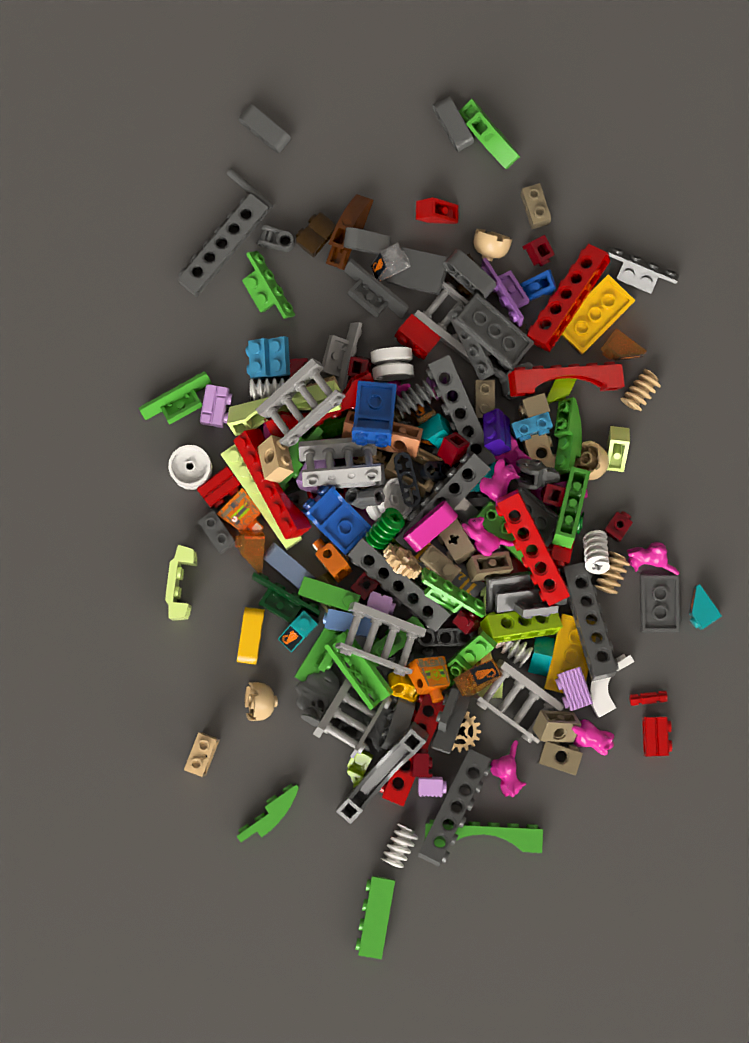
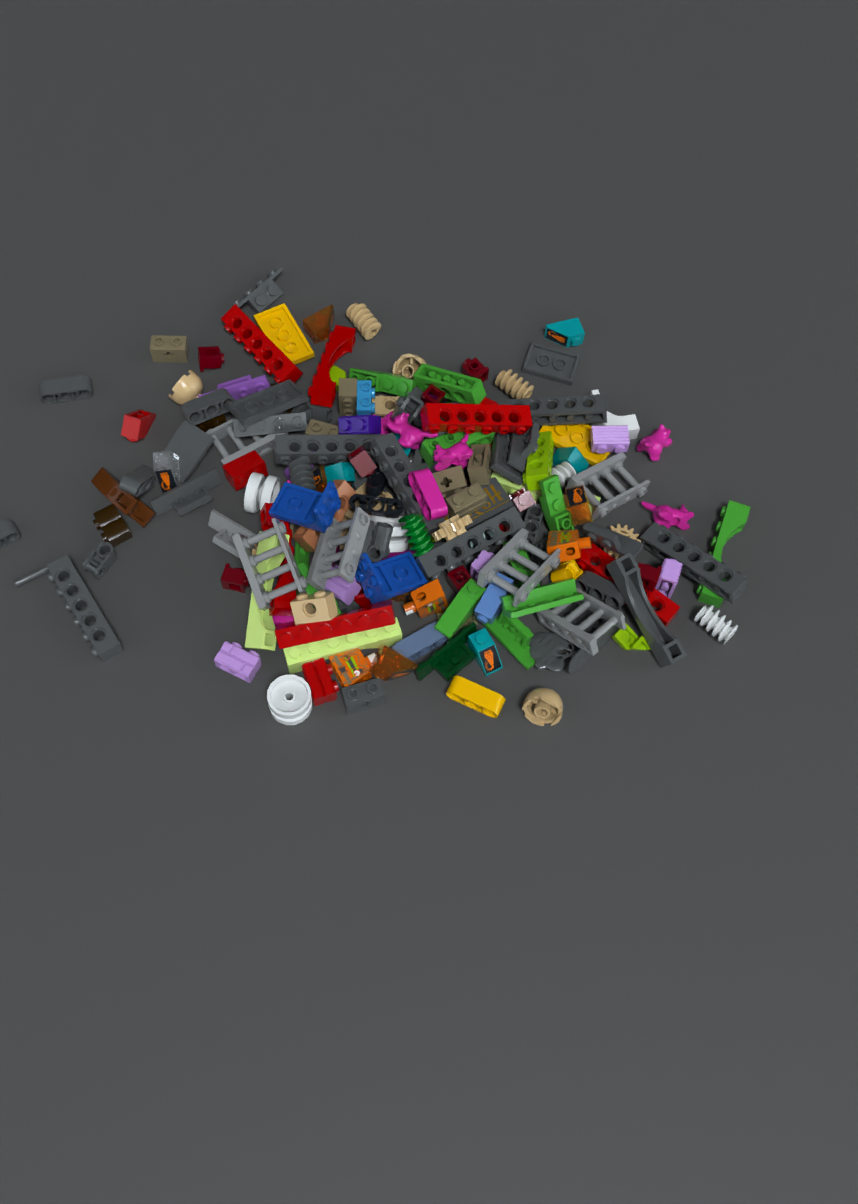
camera: 75 degrees left, 20 degrees down
(178, 401) = (219, 693): bright green bracket -> none
(183, 556) = (406, 751): yellowish green plate -> none
(197, 761) = (580, 773): tan window -> none
(264, 288) = (144, 586): bright green bracket -> none
(264, 390) = (239, 610): white piece -> none
(268, 358) = (211, 598): dark azure plate -> none
(276, 808) = (655, 723): bright green slope -> none
(358, 365) = (252, 521): dark red brick -> none
(376, 917) = (780, 663): bright green brick -> none
(449, 595) = (496, 500): bright green bracket -> none
(488, 134) = (89, 362): bright green slope -> none
(539, 285) = (240, 362): blue slope -> none
(556, 726) = (639, 462): dark tan brick -> none
(569, 765) = (672, 465): dark tan brick -> none
(596, 552) = (498, 388): white piece -> none
(617, 448) = (404, 345): yellowish green slope -> none
(648, 698) = (631, 393): red axle -> none
(654, 555) = (509, 352): dark pink animal -> none
(656, 736) = (667, 396): red brick -> none

